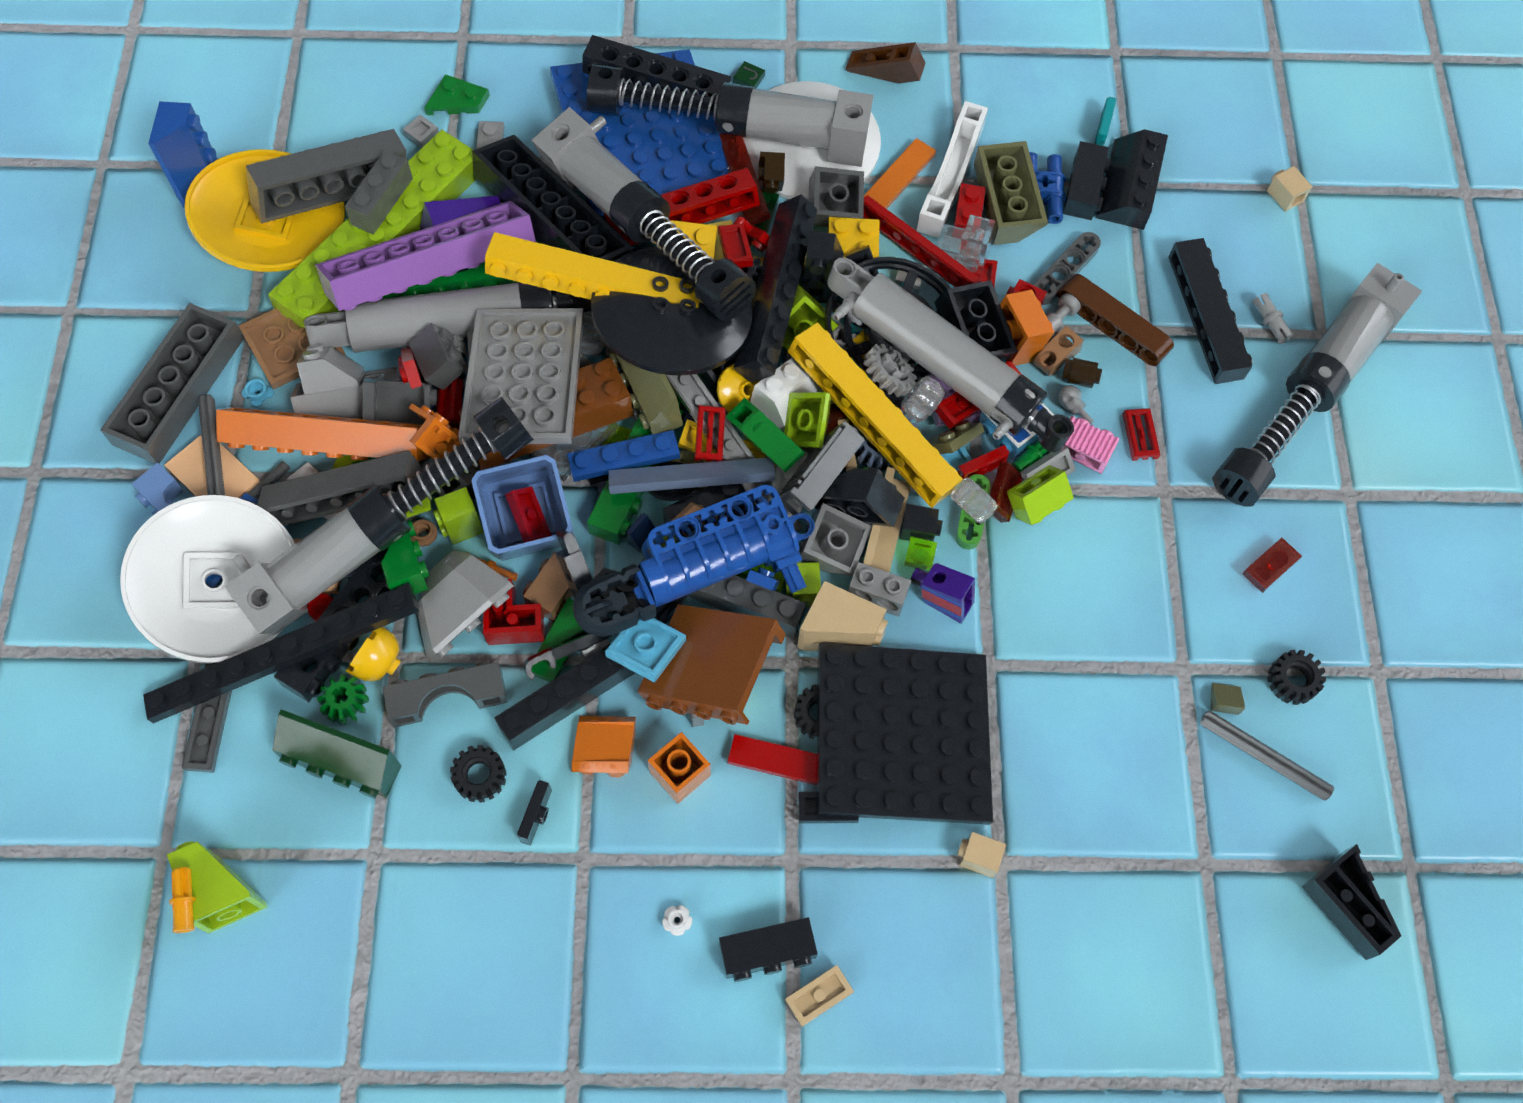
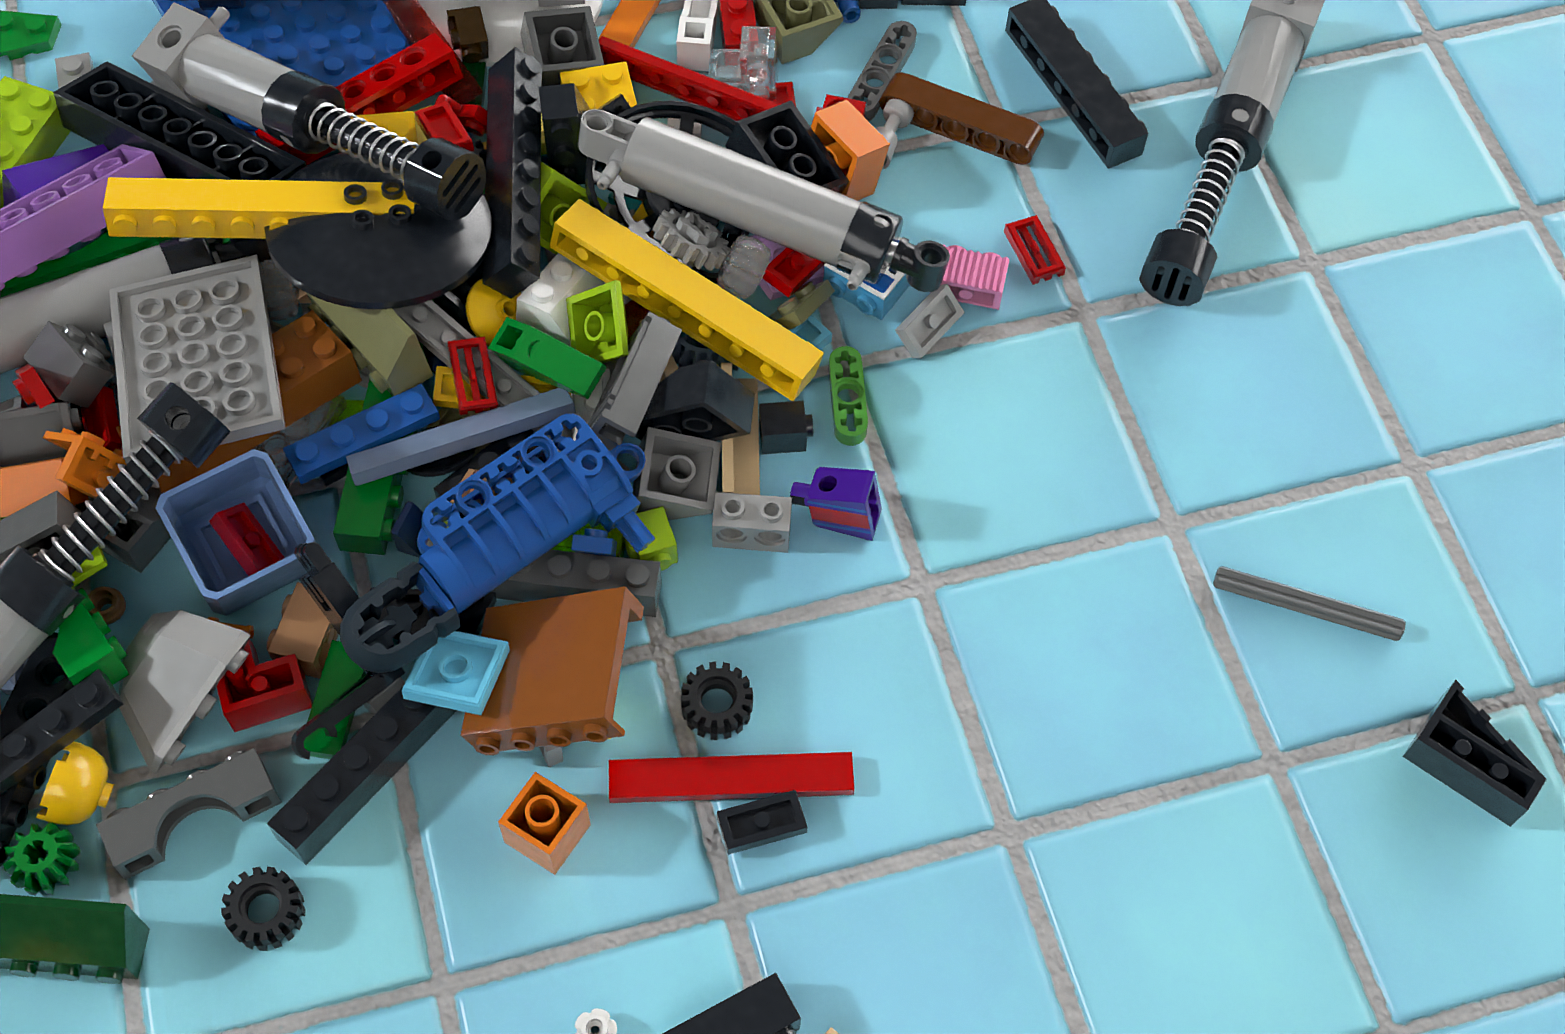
camera: 15 degrees left, 5 degrees down
(457, 516) = (148, 568): lime brick -> none
(535, 813) = (358, 939): black plate -> none
(604, 745) = (432, 823): orange slope -> none
(841, 619) = (715, 575): tan slope -> none
(903, 735) = (835, 701): black plate -> none
(920, 553) = (794, 464): clear neon green plate -> none
(973, 500) = (845, 376): clear gear -> none
(981, 854) = (982, 827): tan brick -> none
(984, 463) = (845, 331): red tile -> none
(1005, 479) = (881, 361): clear red plate -> none
(1030, 456) = (904, 305): green axle -> none
(1040, 495) = (929, 352): lime brick -> none
(1058, 350) = (901, 172): medium nougat leg -> none
(1070, 399) = (933, 227): light grey piece -> none
(1081, 372) = (938, 191): dark brown brick -> none
(1227, 699) = (1238, 547): olive slope -> none
(1272, 565) = (1244, 367): clear red plate -> none
(1273, 318) = (1156, 73): light grey pin -> none
(1308, 667) = (1325, 481): black tyre -> none

